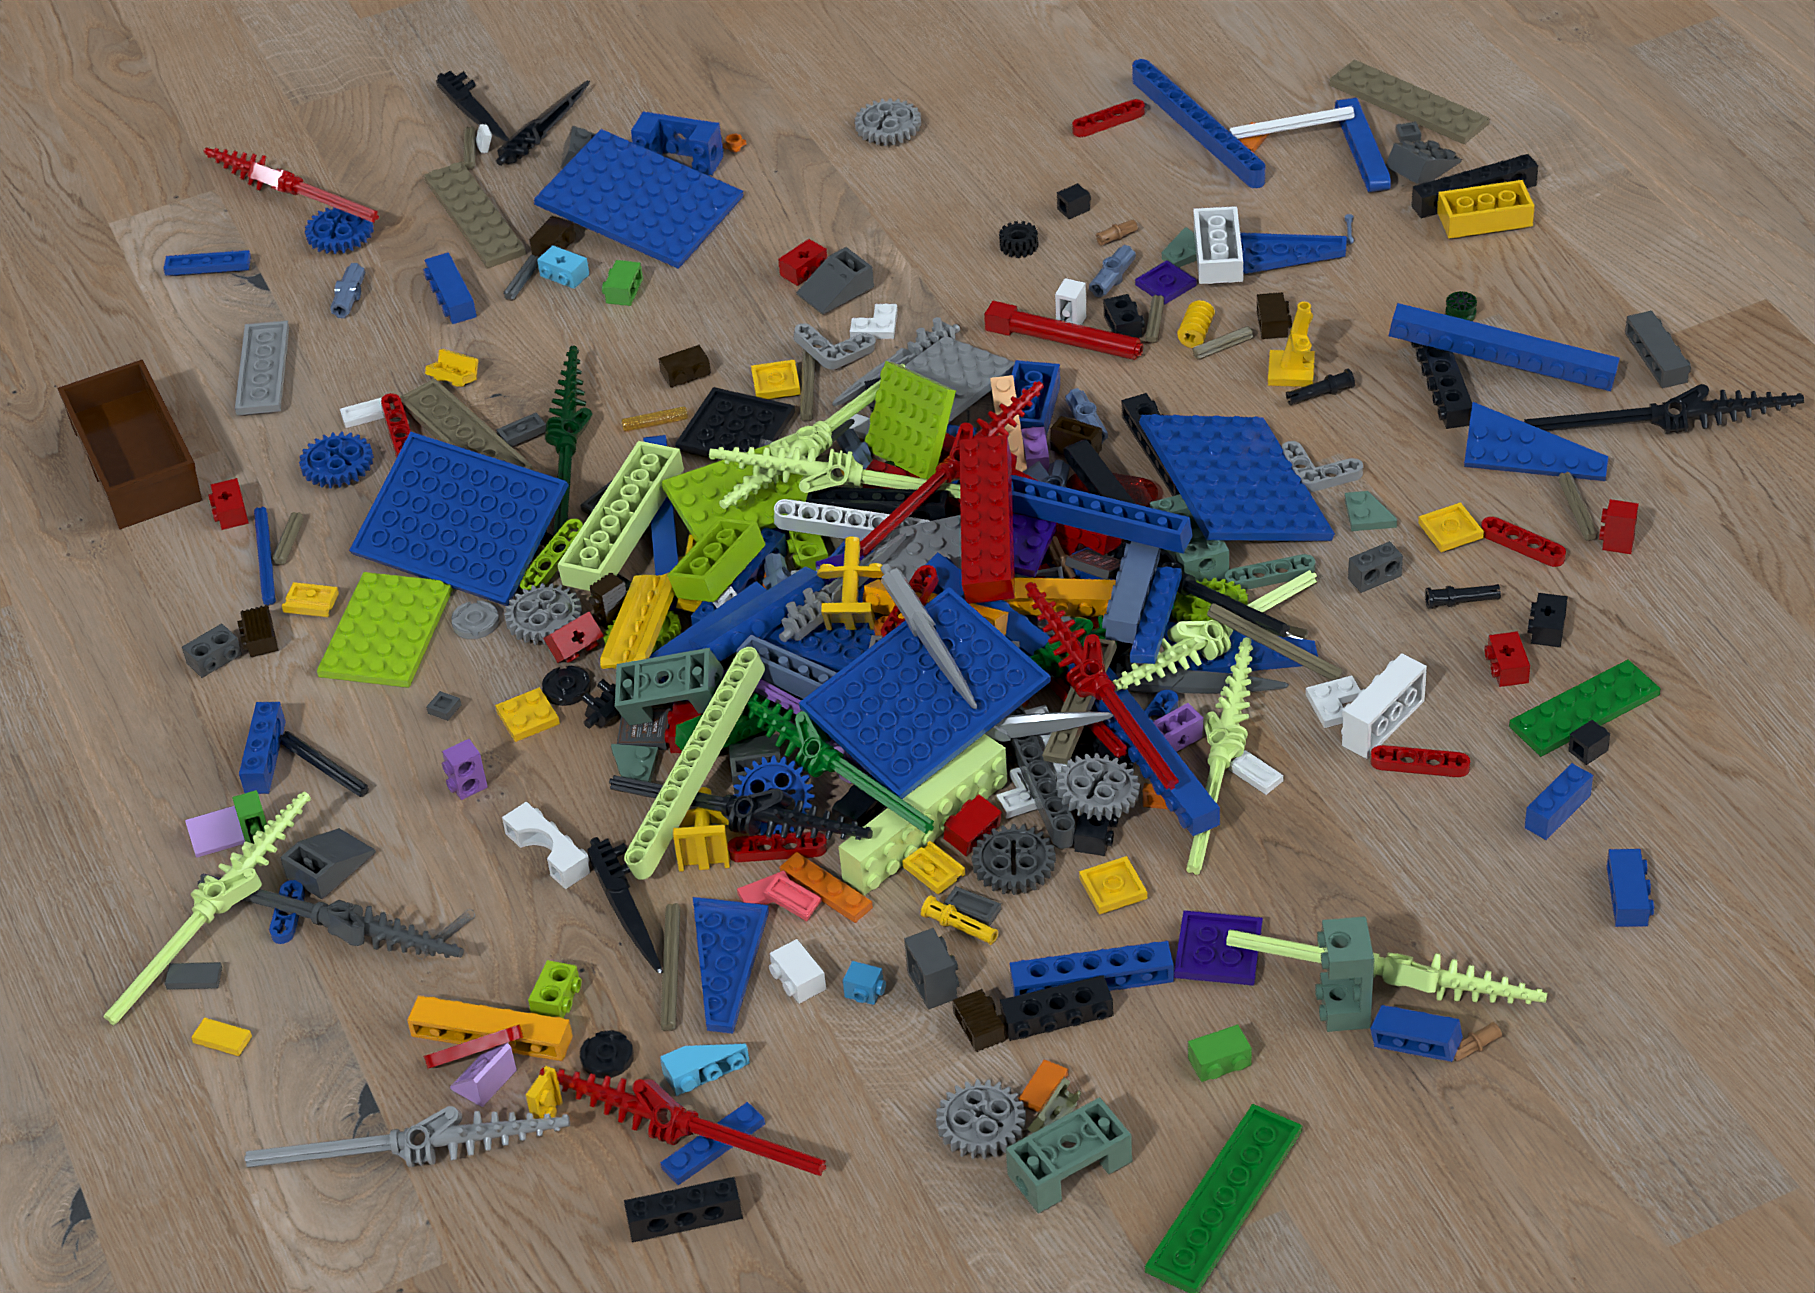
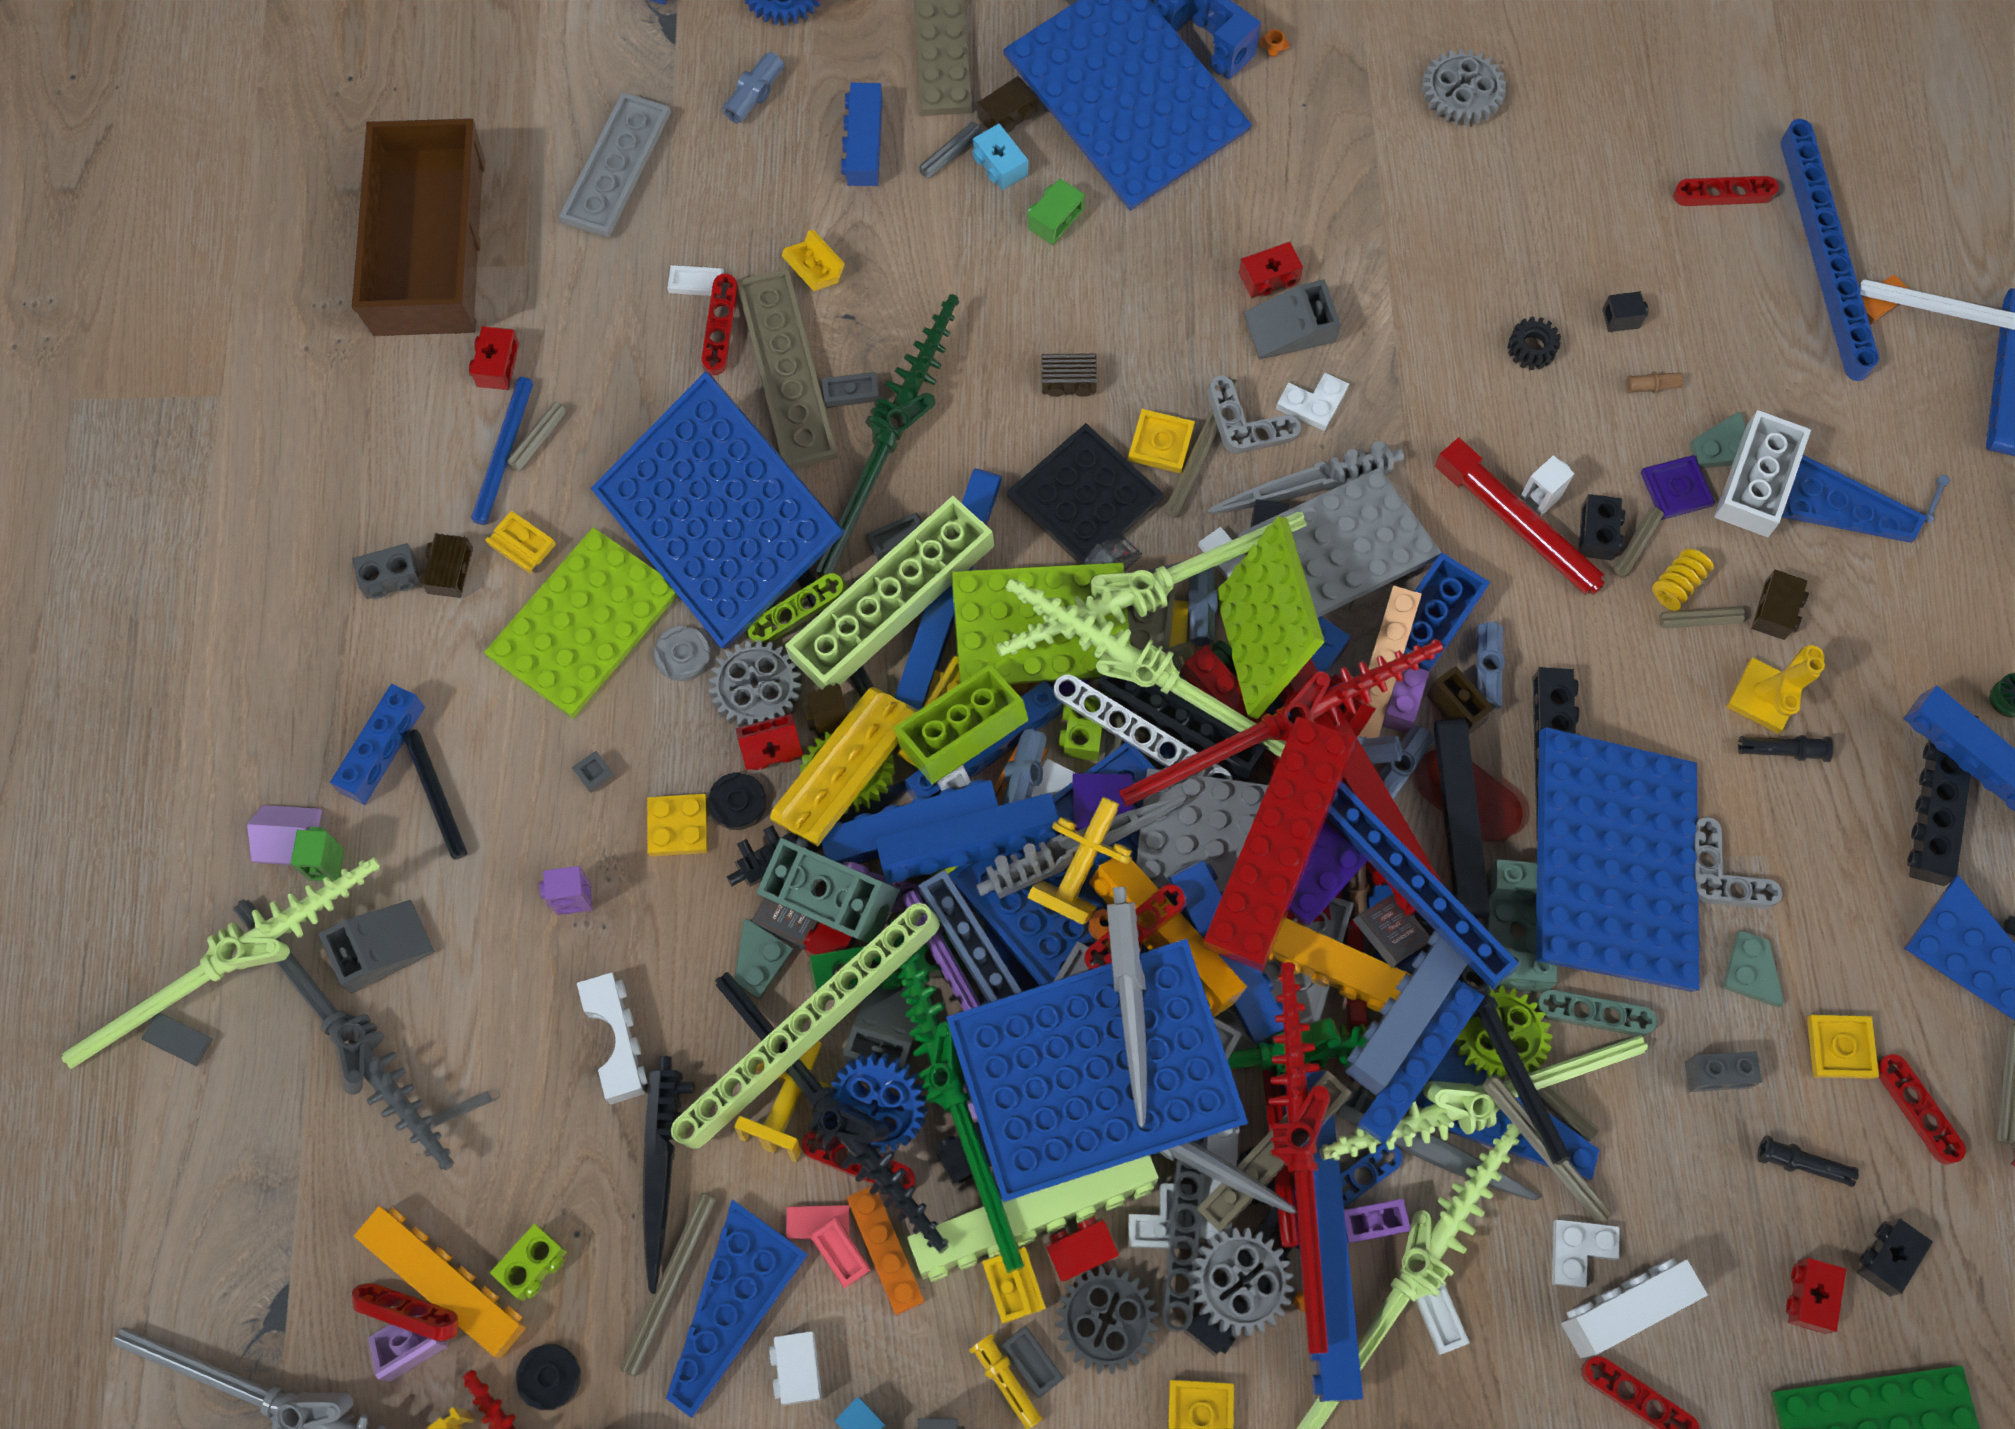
camera: 20 degrees right, 25 degrees up
(221, 1036) = (168, 1143): yellow tile -> none
(290, 920) = (289, 1008): blue beam -> none
(336, 459) = (611, 354): blue gear -> none
(654, 418) = (1003, 437): clear yellow axle -> none
(1112, 271) = (1611, 454): sand blue piece -> none

